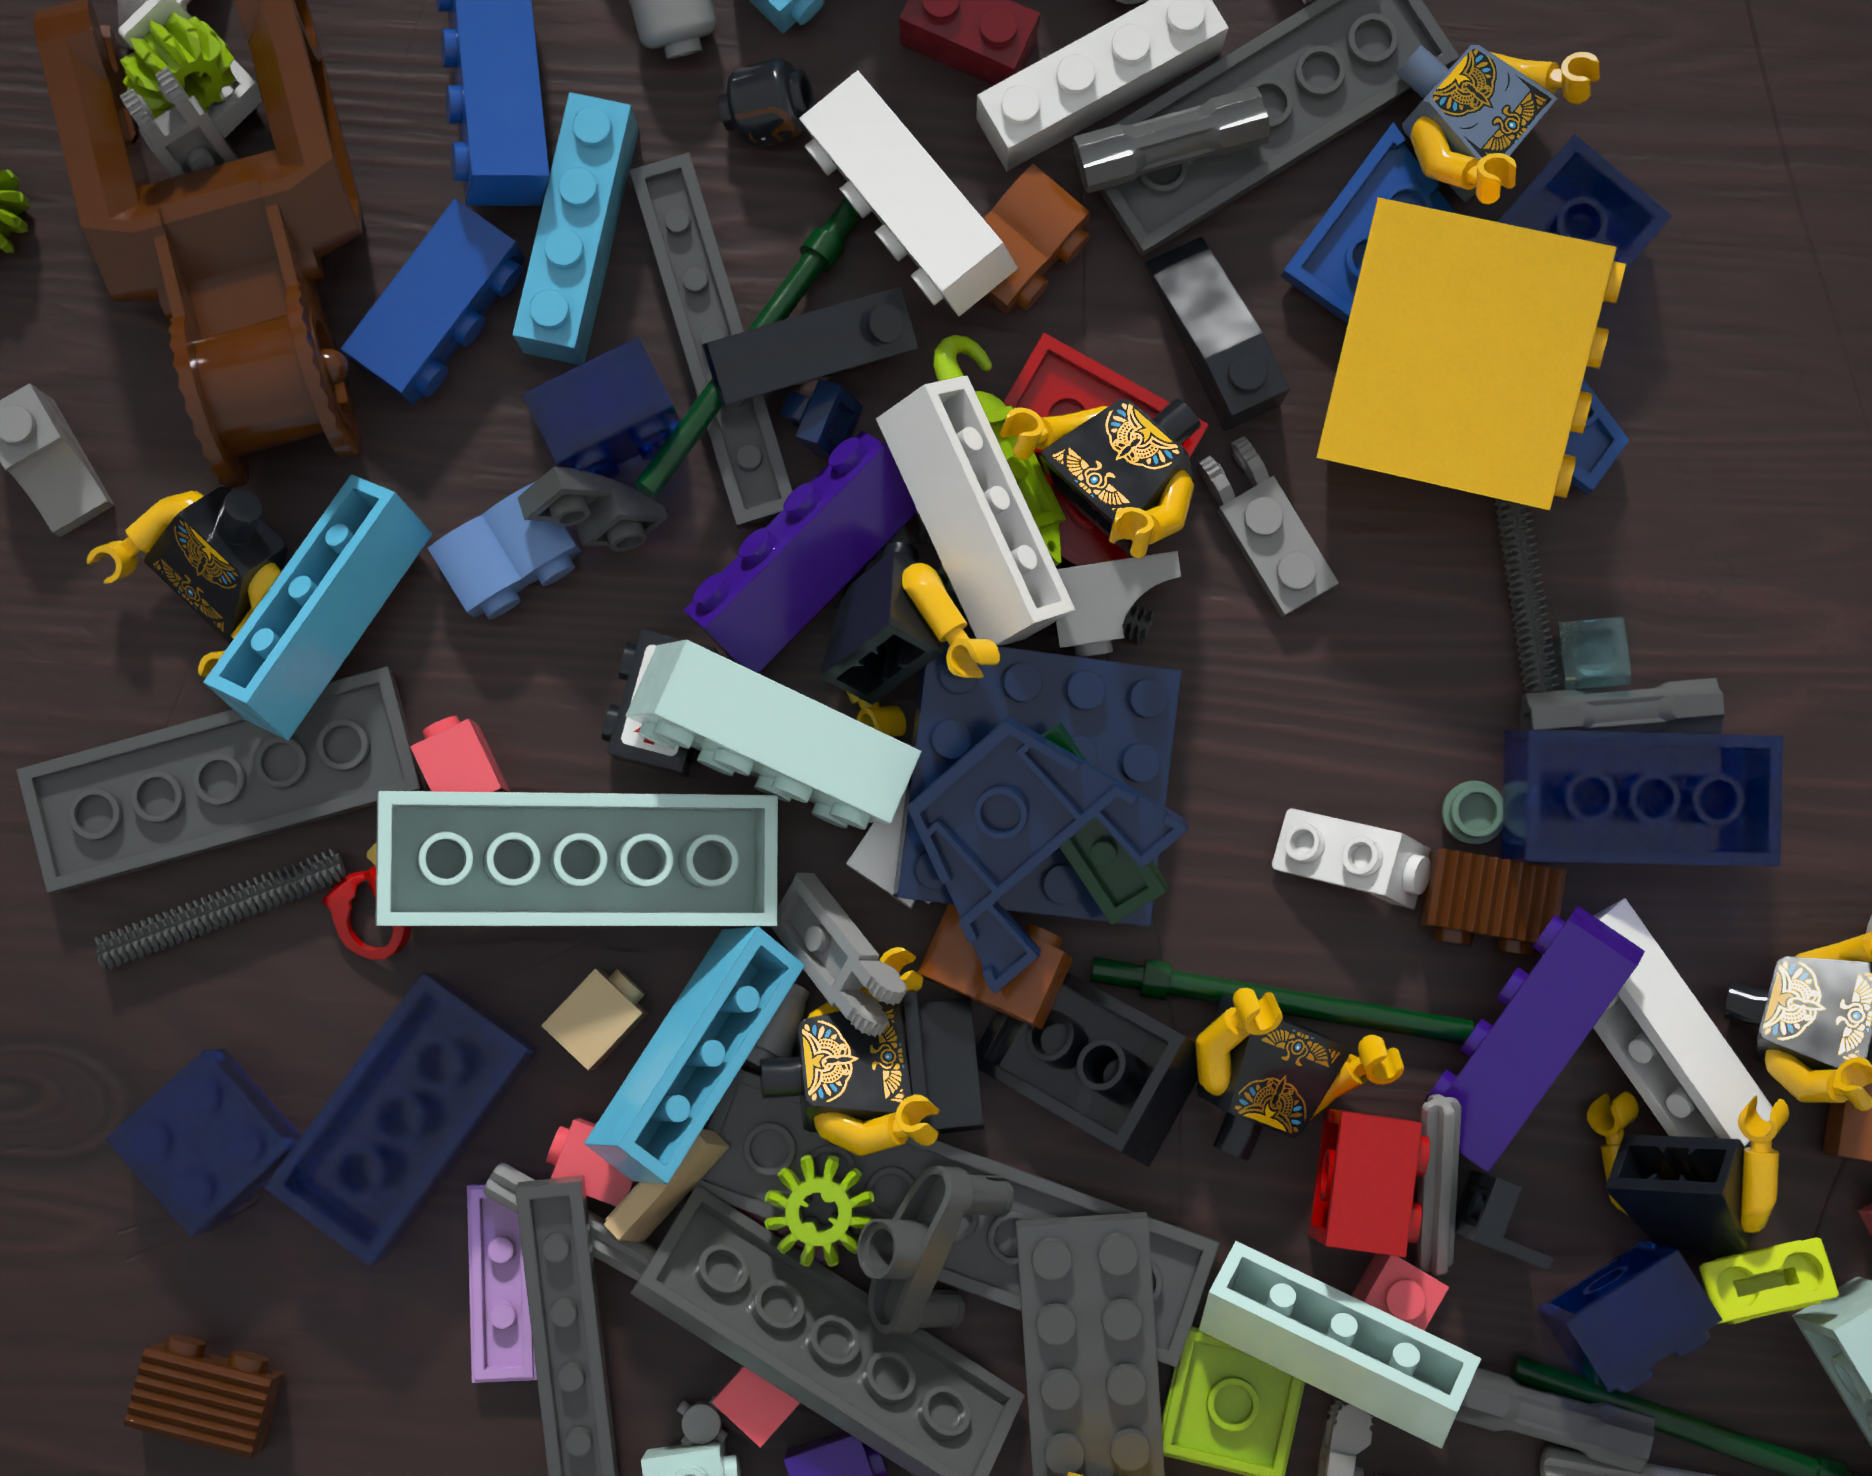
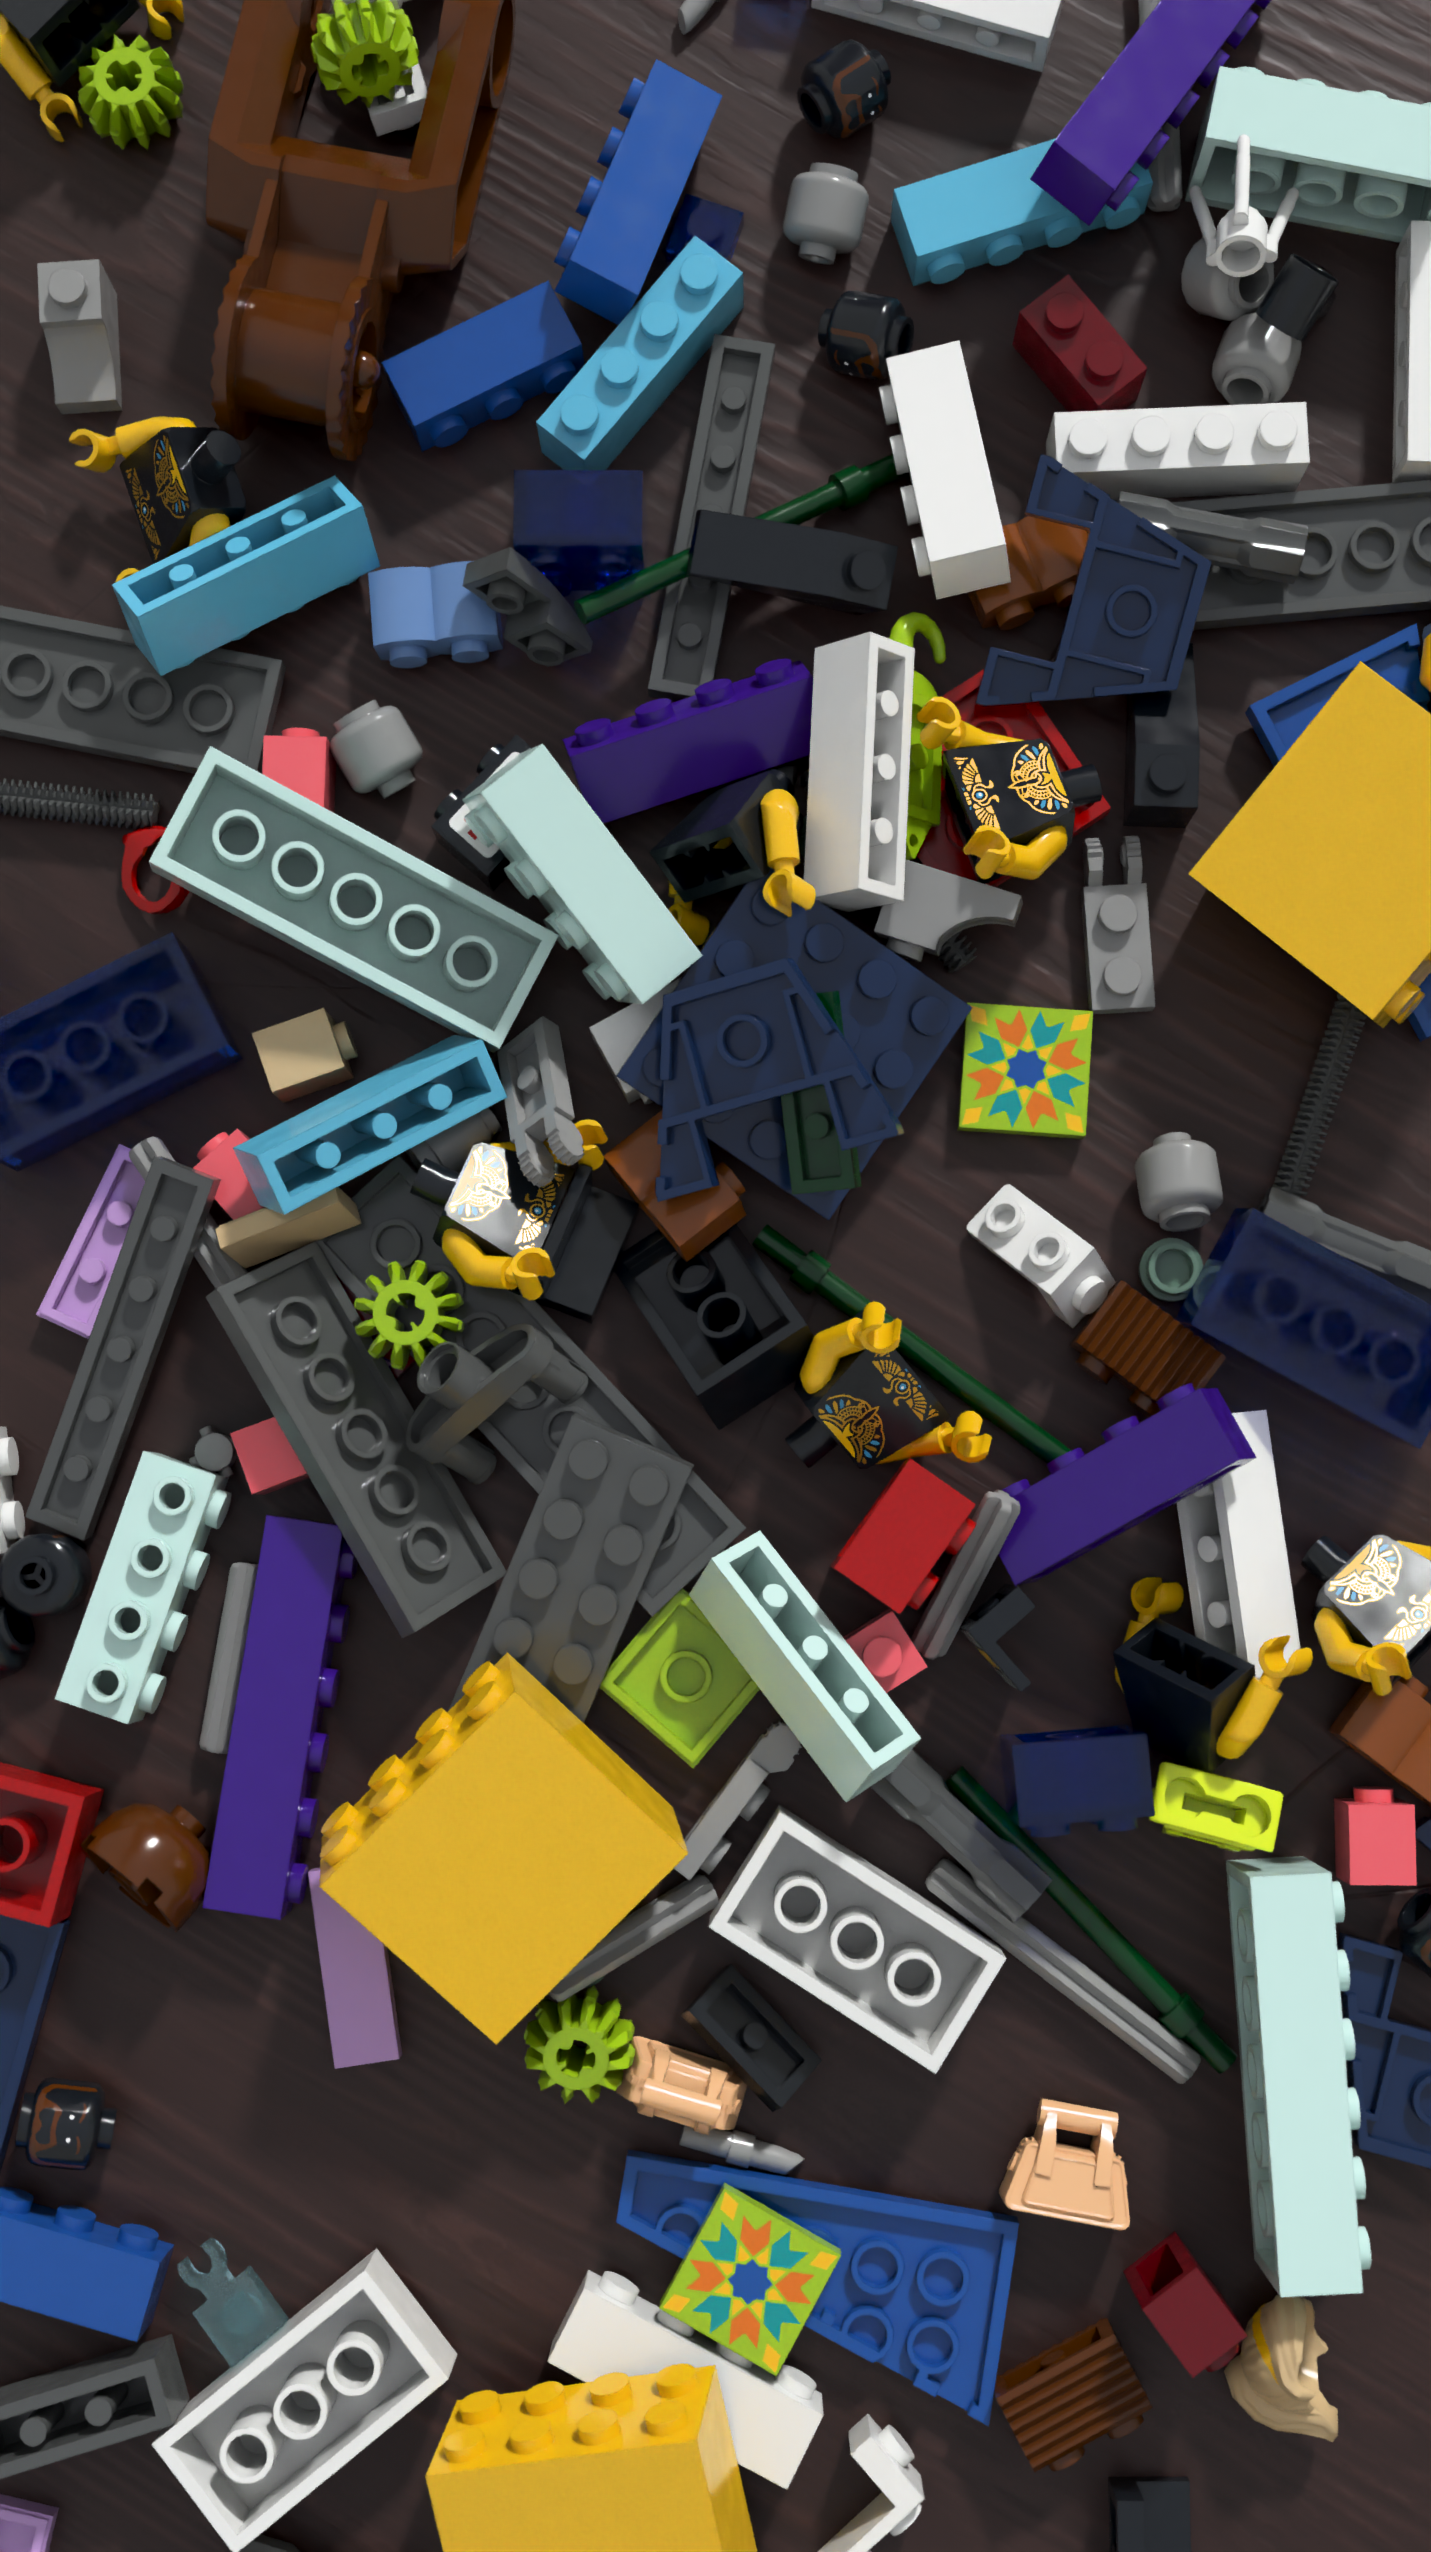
camera: 35 degrees right, 0 degrees up
(181, 136) = (337, 105): light grey hinge -> none
(516, 704) = (375, 749): none -> light grey head
(568, 71) = (710, 222): none -> clear blue plate
(824, 418) = (773, 631): dark blue tile -> none
(1135, 244) = (1127, 608): none -> dark blue wing
(1253, 698) = (1025, 1071): none -> tile
(1441, 731) = (1178, 1182): none -> light grey head
(1594, 653) = (1352, 1182): clear light blue plate -> none

